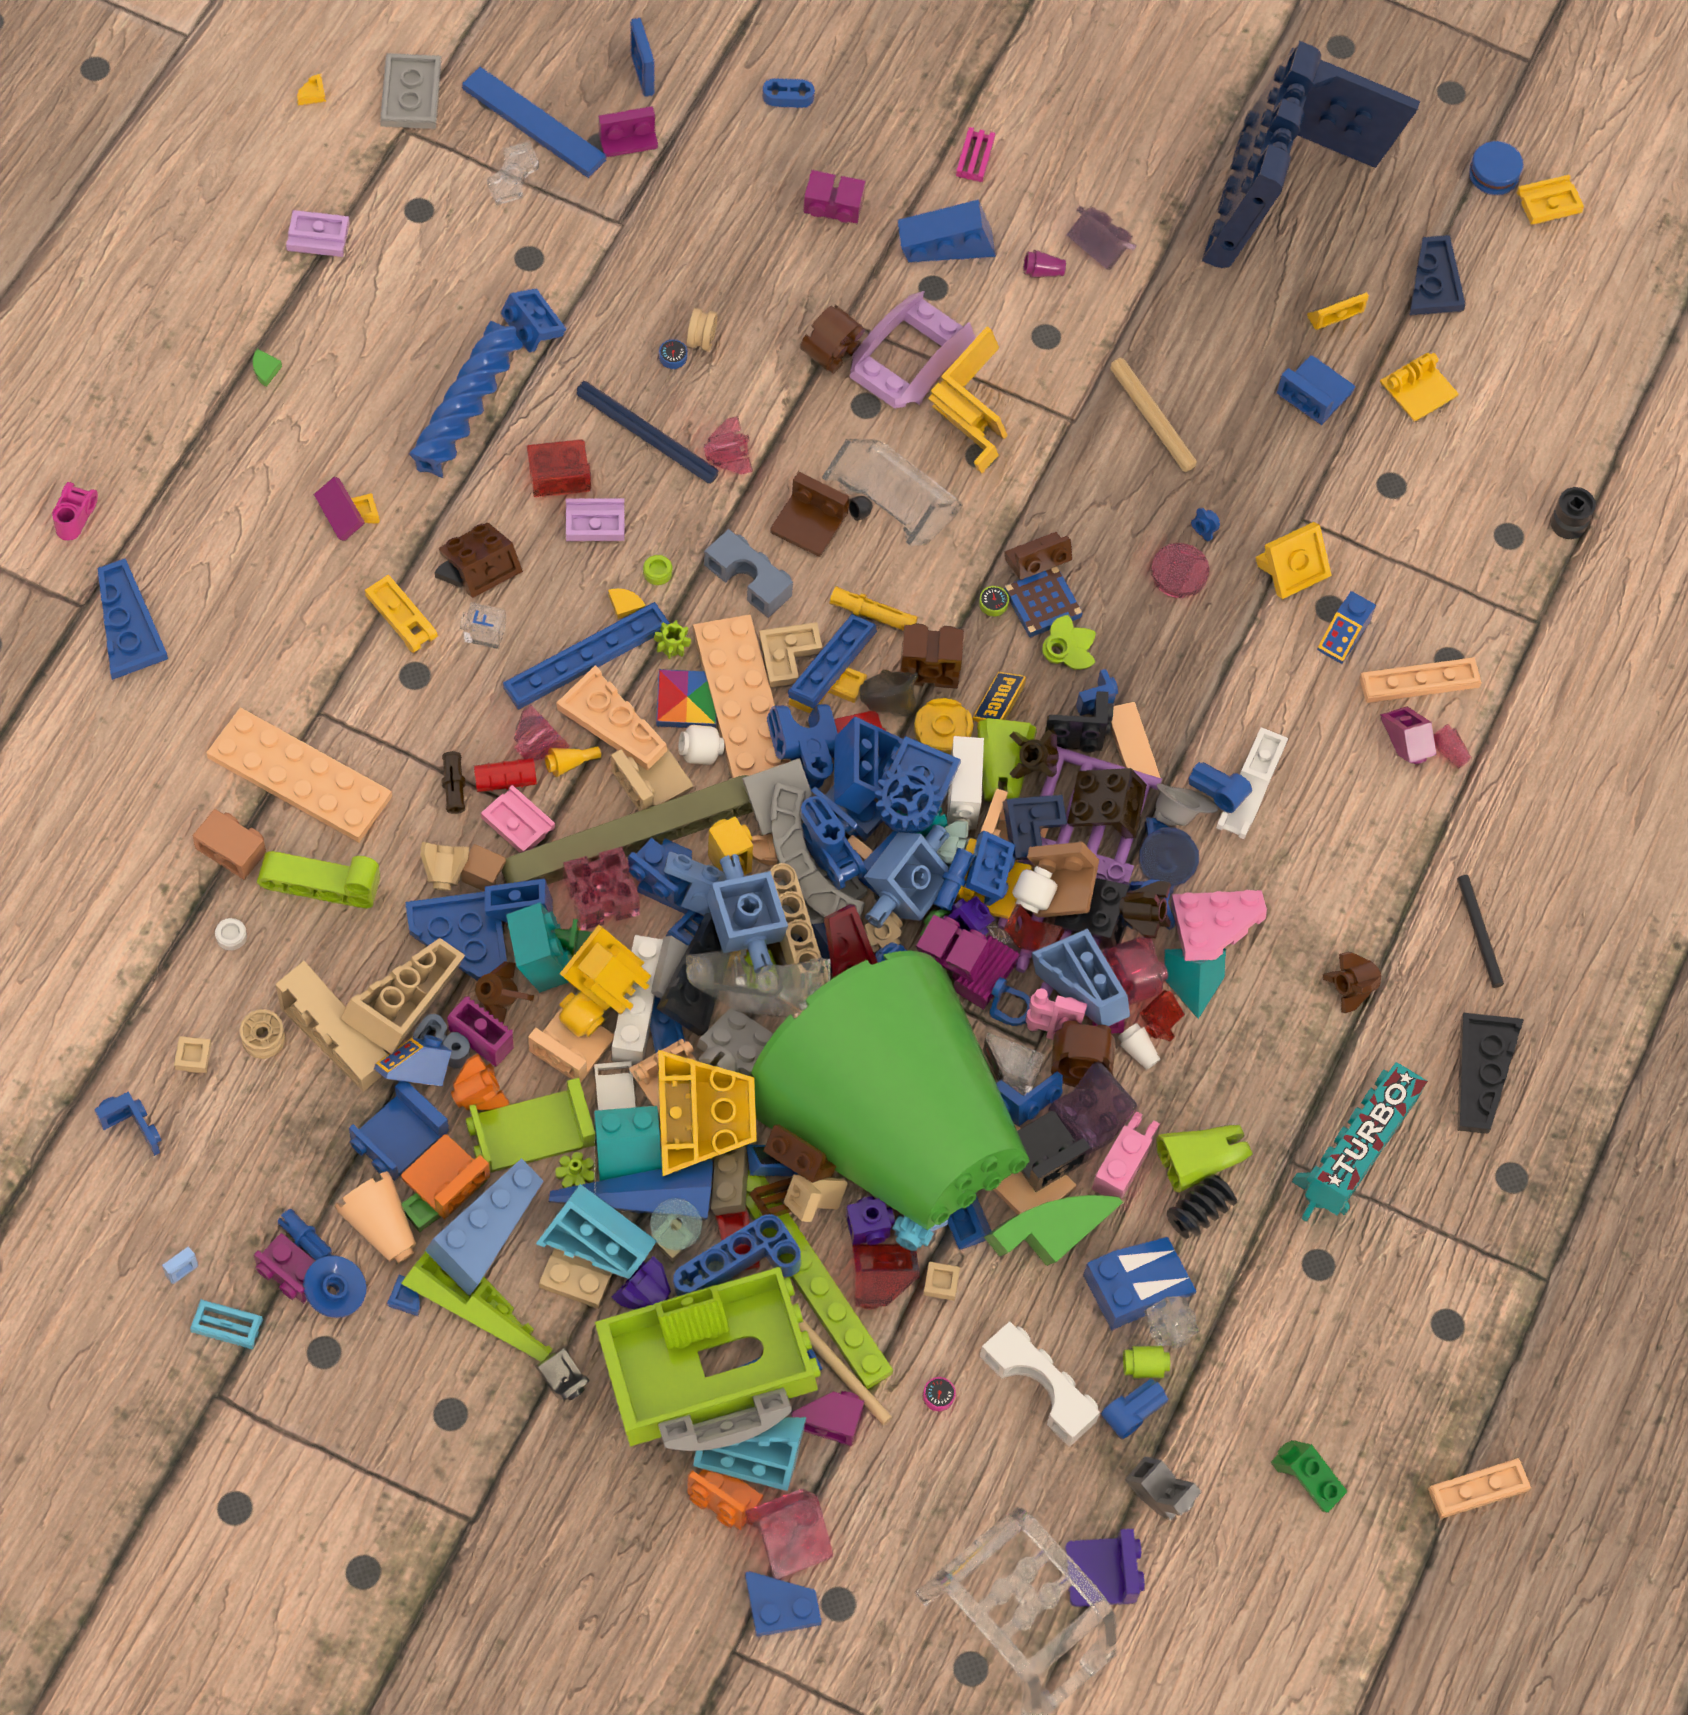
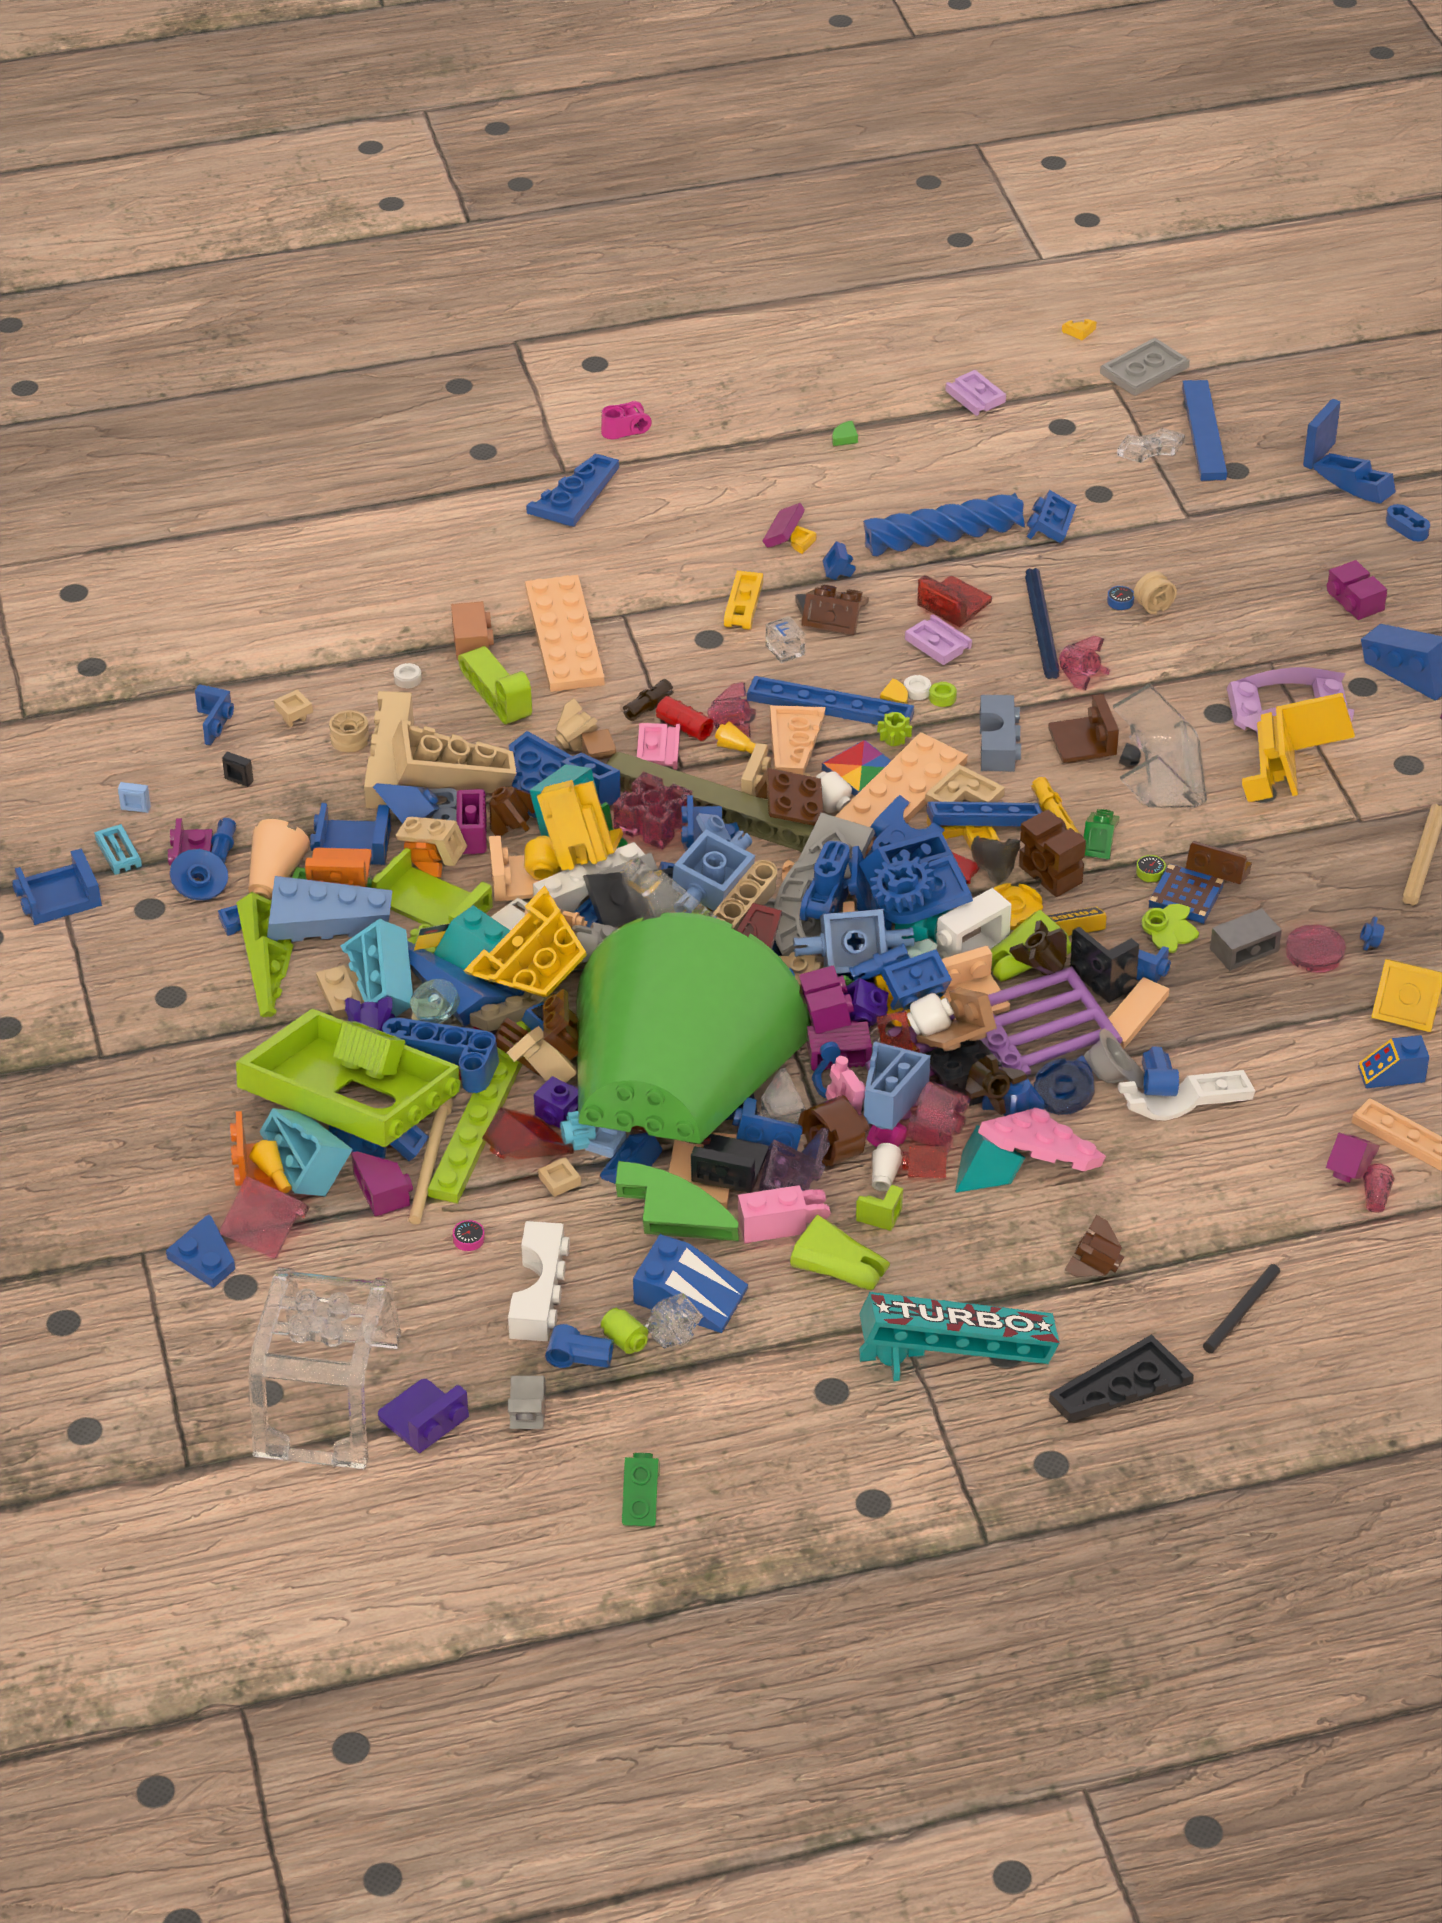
camera: 55 degrees right, 20 degrees down
(226, 1157) = (237, 769): none -> black tile
(236, 1409) = (58, 890): none -> blue panel
(426, 509) = (838, 562): none -> blue tile
(479, 1077) = (442, 833): none -> tan bracket
(562, 1375) = (257, 1024): bracket -> none
(627, 131) = (1258, 466): magenta bracket -> none
(632, 579) = (917, 687): none -> white tile
(702, 781) = (791, 796): none -> reddish brown bracket
(703, 78) = (1356, 477): none -> blue slope
(727, 1429) = (269, 1095): light grey slope -> none
(730, 838) = (766, 840): yellow brick -> none
(742, 1485) = (267, 1158): none -> yellow cone
(832, 338) = (1237, 650): reddish brown brick -> none
(931, 599) = (1100, 833): none -> green bracket
(1027, 816) = (990, 977): dark blue plate -> none
(1108, 799) = (1062, 1015): dark brown bracket -> none
(1134, 608) = (1245, 939): none -> flat silver brick
(1177, 1084) = (879, 1211): none -> lime panel
(1200, 1205) = (793, 1281): black piece -> none
(1479, 1488) = (751, 1609): light nougat tile -> none

